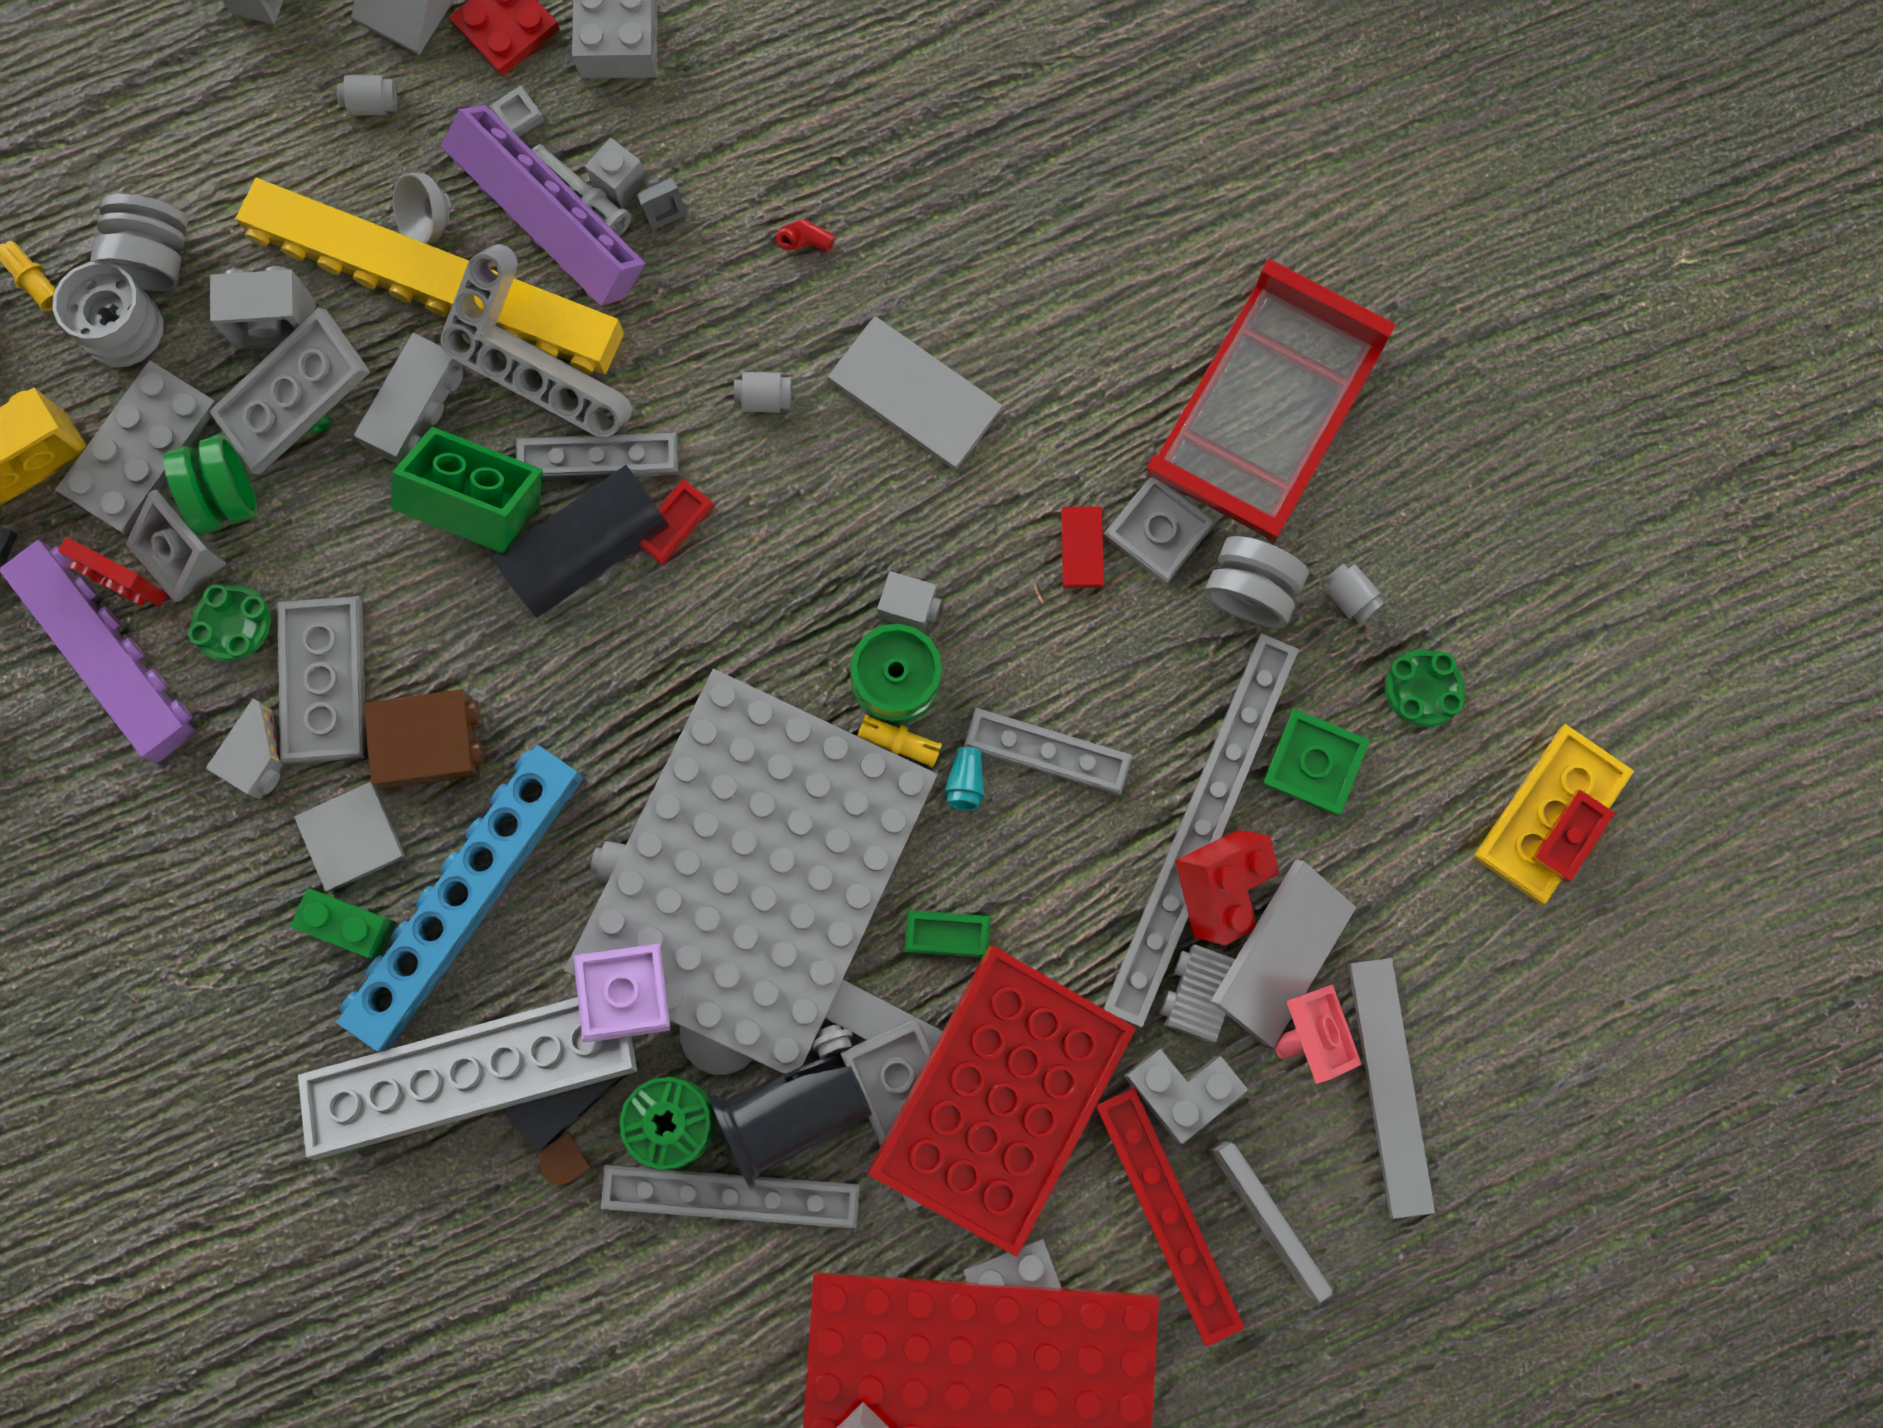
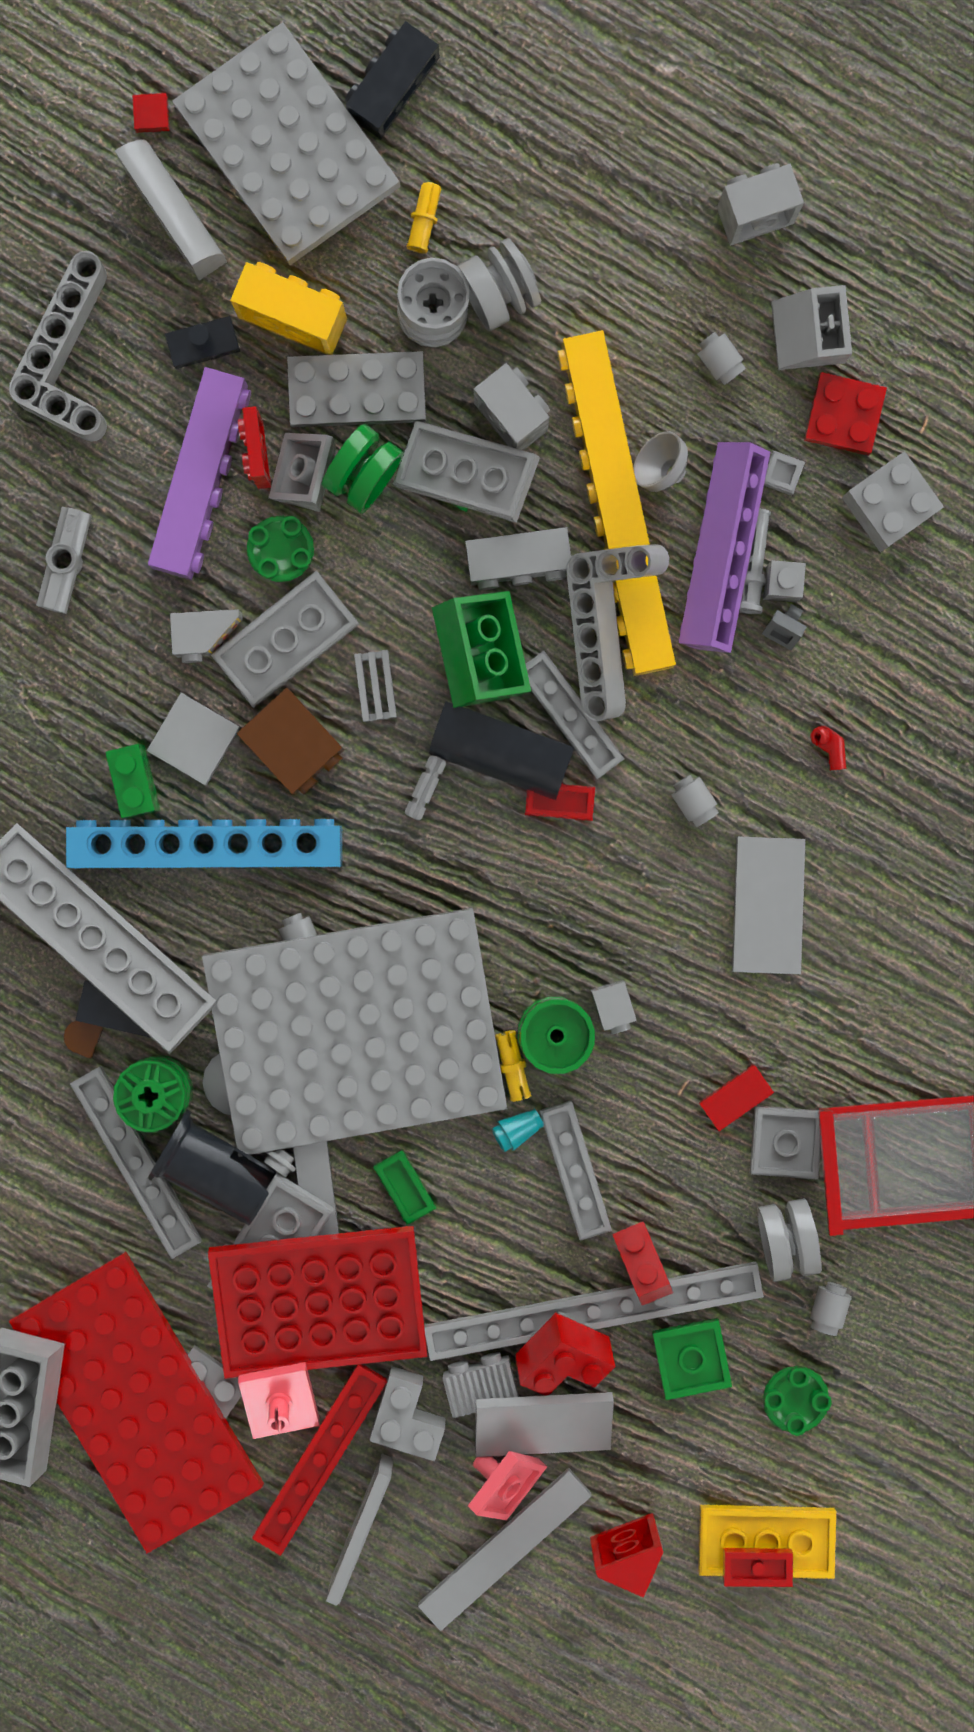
camera: 55 degrees right, 10 degrees up
(62, 824) = (68, 538): none -> light grey piece
(401, 607) = (372, 656): none -> light grey tile
(565, 641) = (425, 787): none -> light grey axle
(621, 993) = (212, 1008): lavender tile -> none
(1079, 1215) = (279, 1400): none -> tile
(1184, 741) = (642, 1263): none -> red brick
(1475, 947) = (628, 1554): none -> red slope

